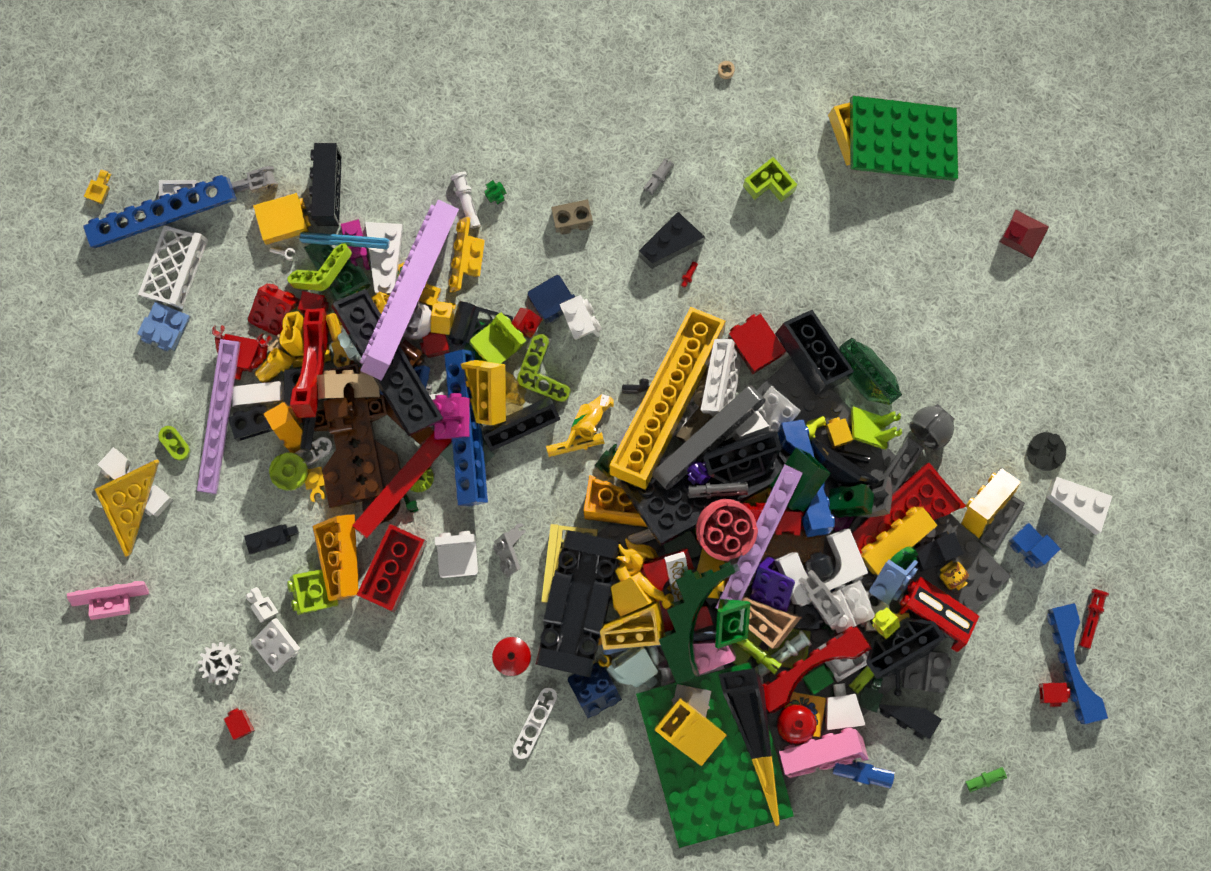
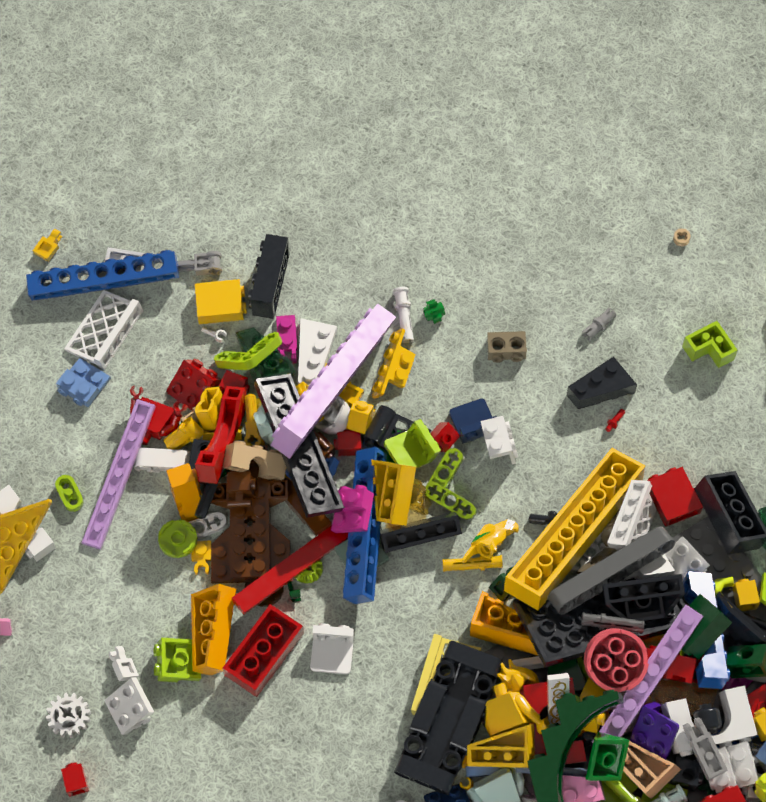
camera: 10 degrees right, 15 degrees down
(252, 428) = (150, 491): black brick -> none
(269, 538) = (145, 601): black hinge -> none
(352, 241) = (285, 332): dark azure axle -> none
(504, 548) = (383, 653): light grey plate -> none
(518, 664) = (369, 773): red dish -> none
(698, 473) = (595, 603): dark purple gear -> none

